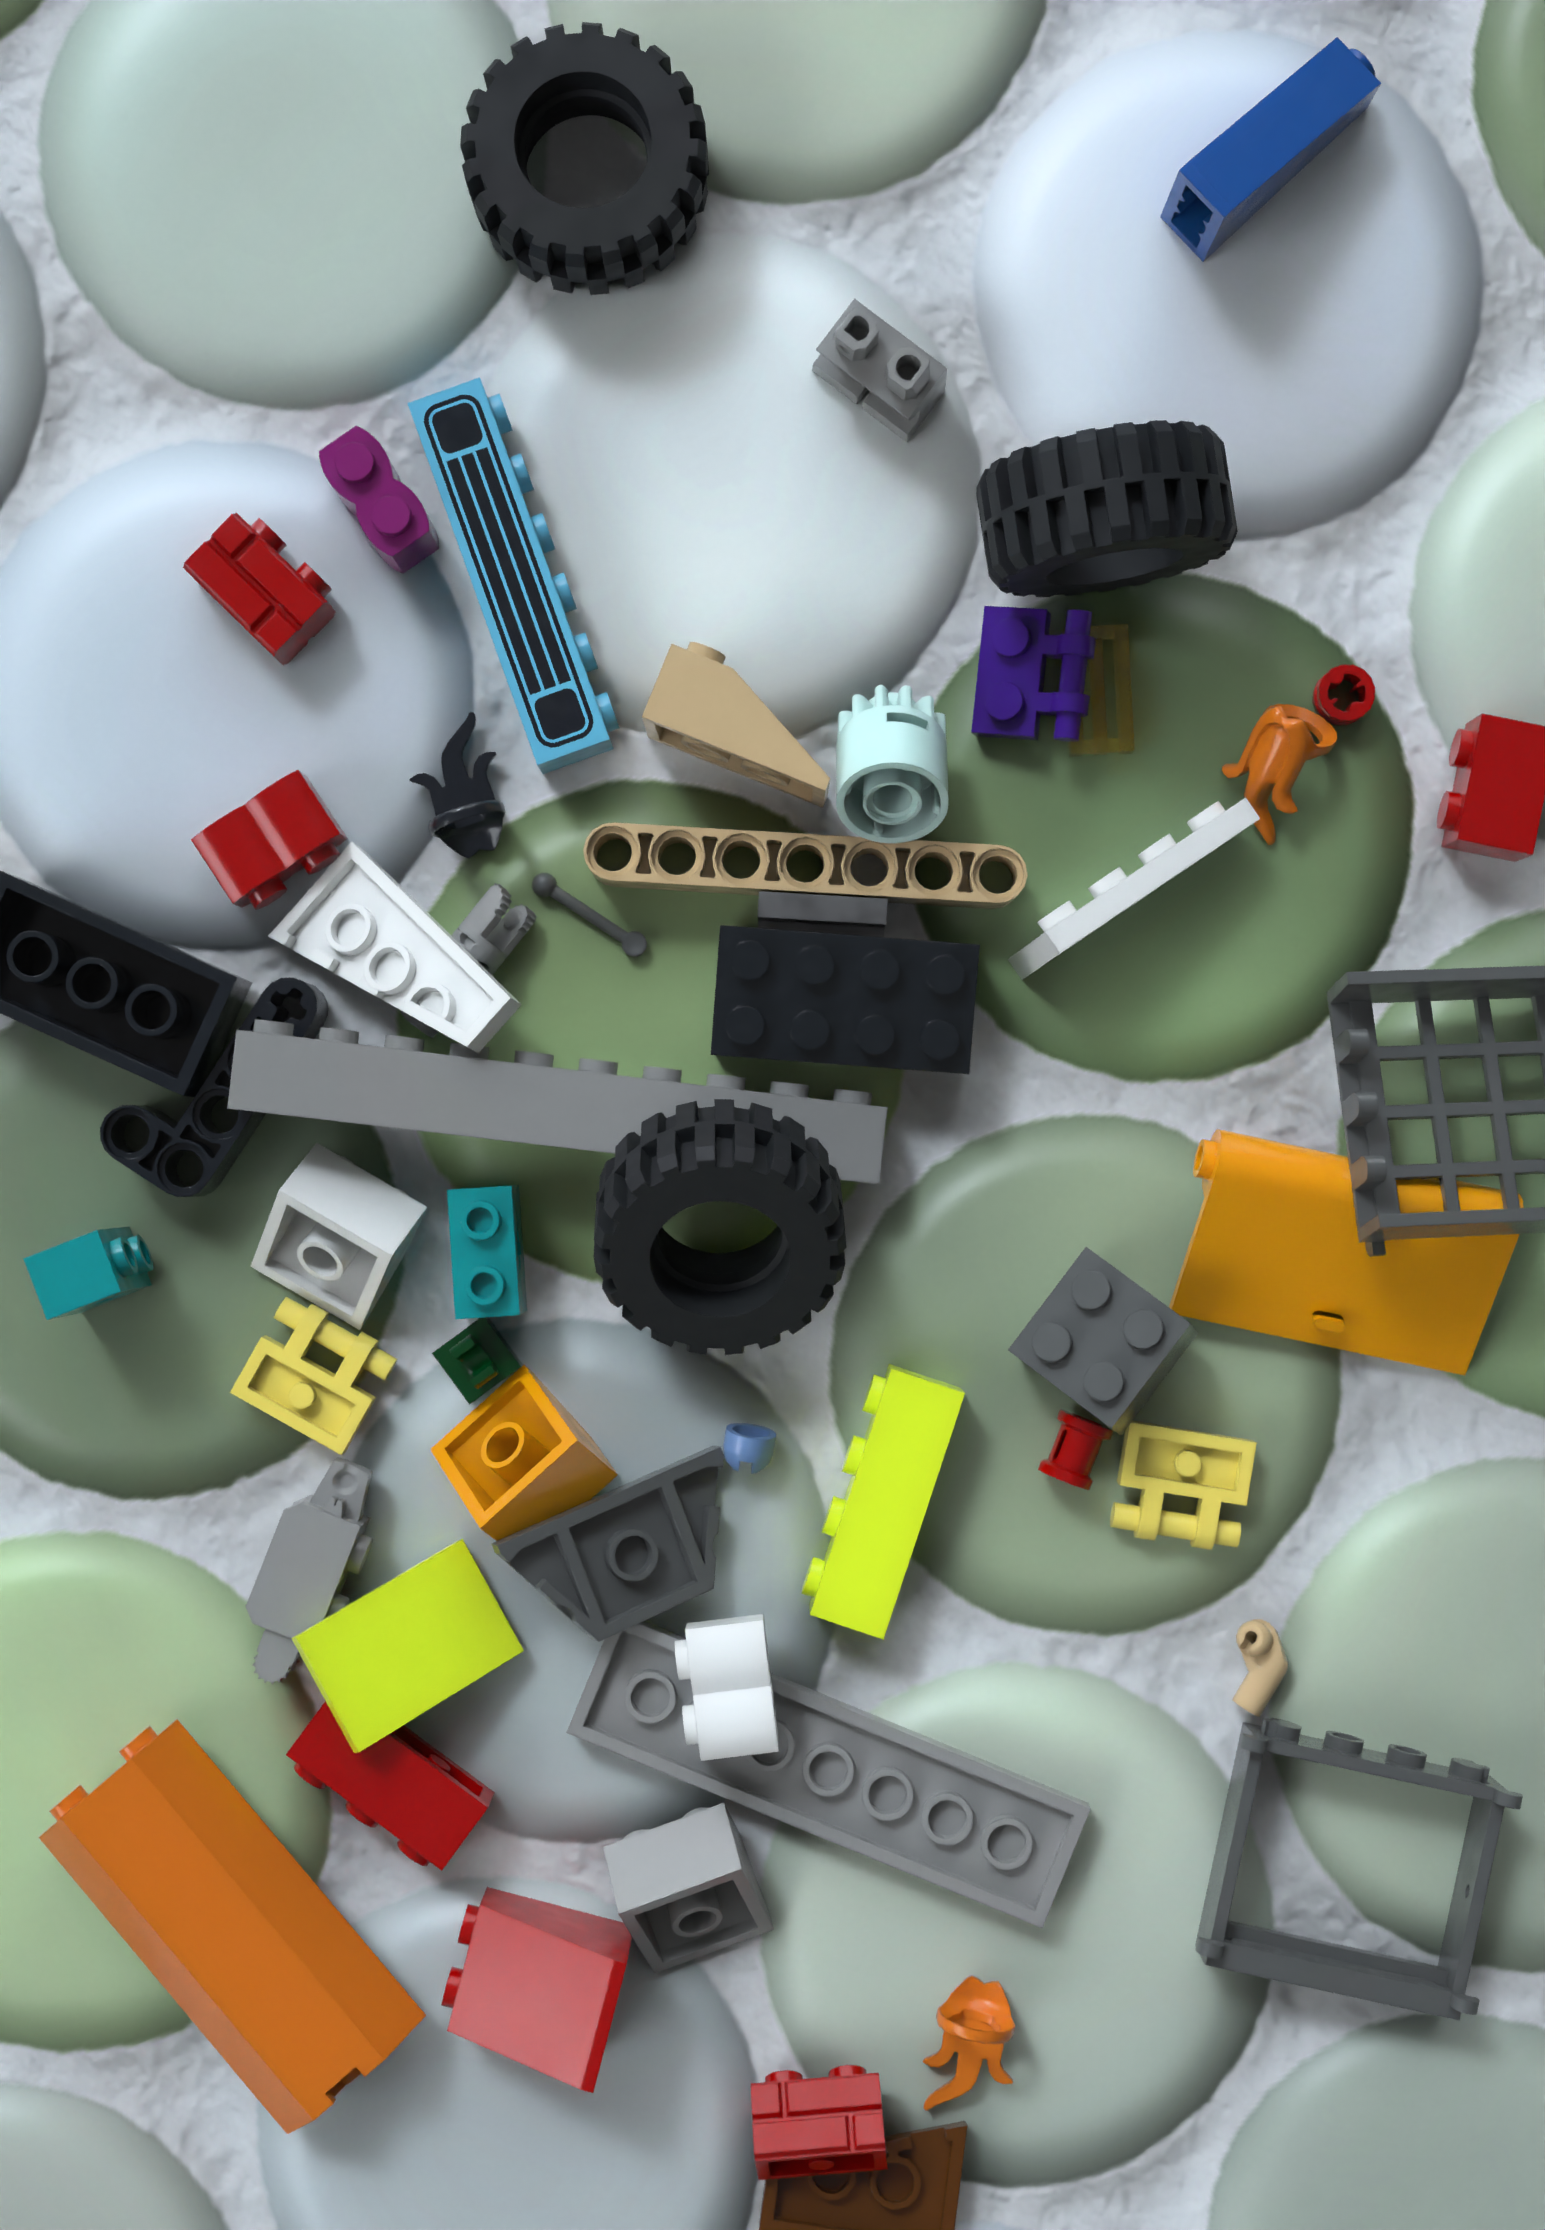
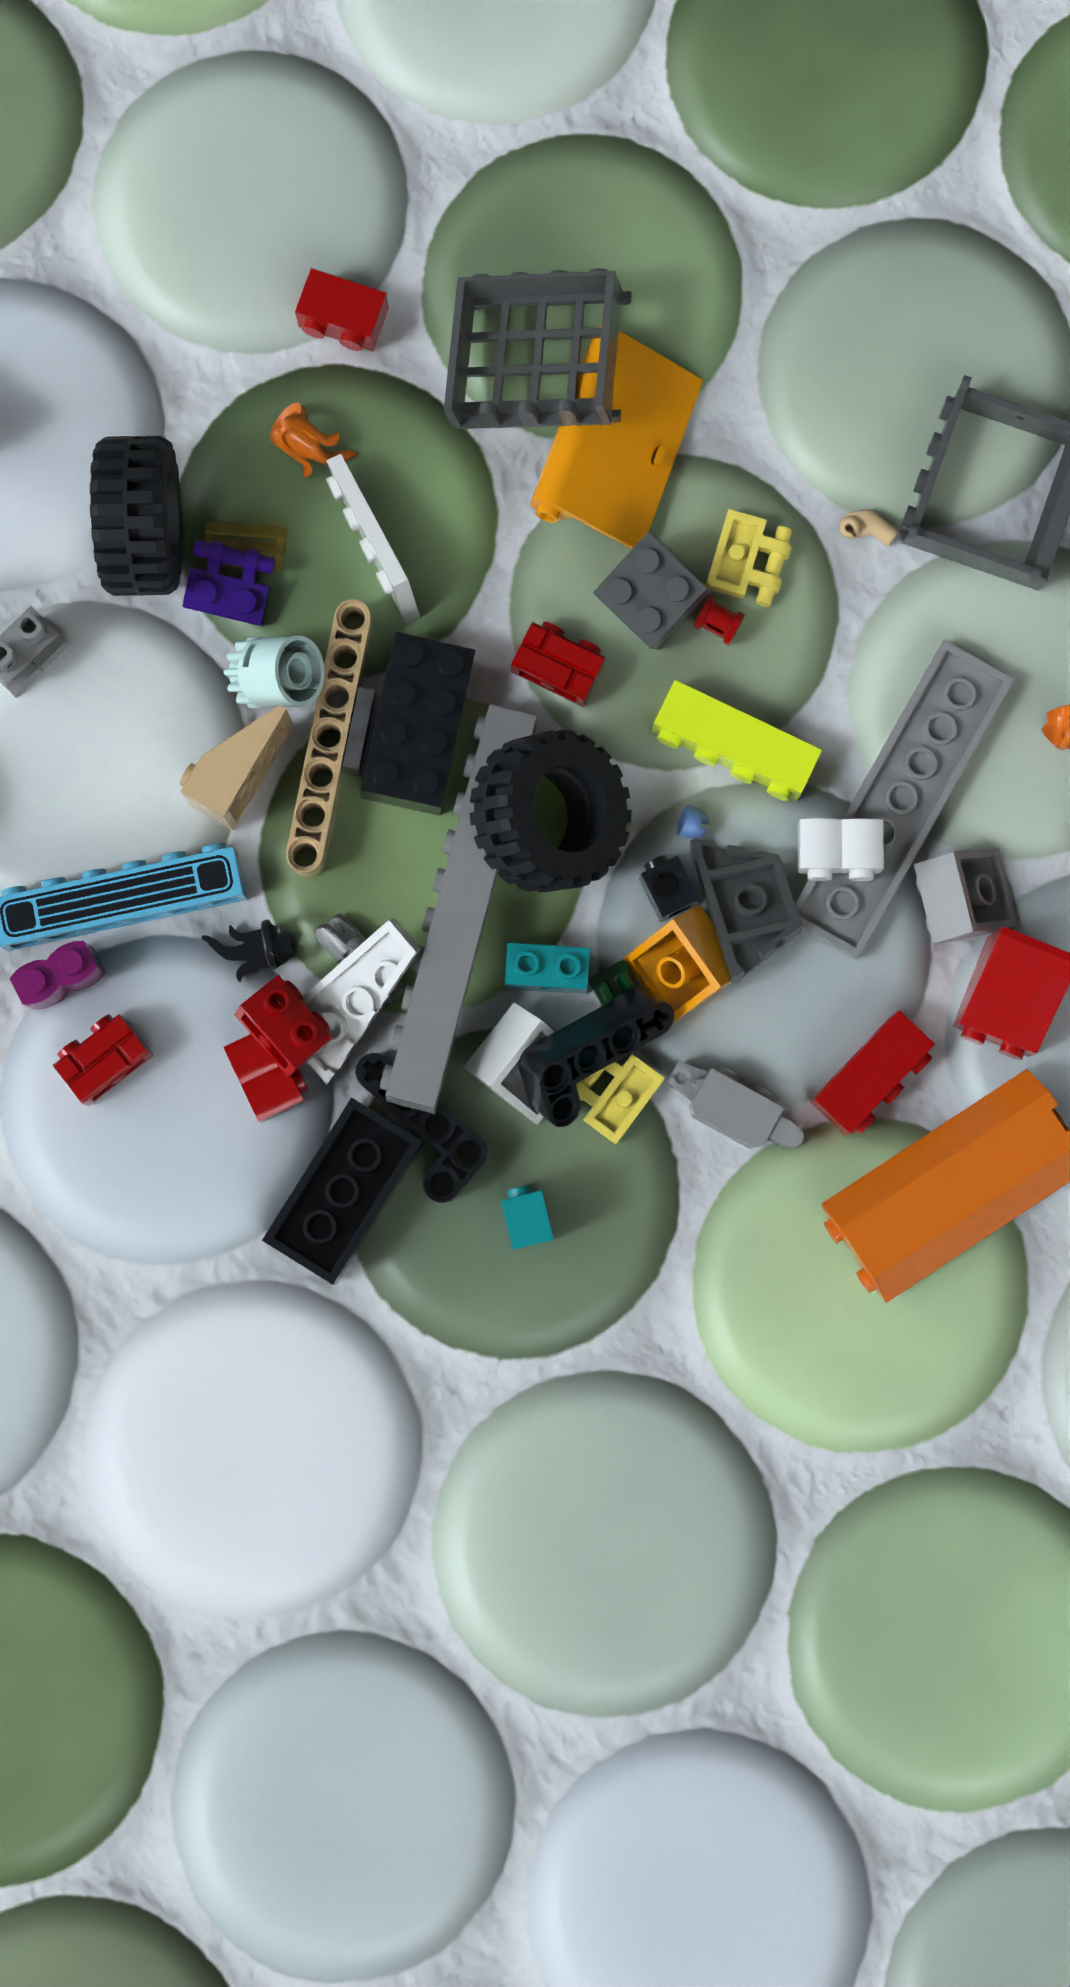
camera: 90 degrees left, 5 degrees down
(336, 859) = (284, 1024): none -> red brick
(367, 1335) = (585, 1047): none -> black beam
(407, 1645) = (790, 1049): neon yellow tile -> none
(619, 1442) = (671, 905): none -> black brick
(633, 943) = (363, 856): dark grey hinge -> none
(973, 1206) = (558, 663): none -> red brick
(1362, 683) = (264, 384): red bush -> none

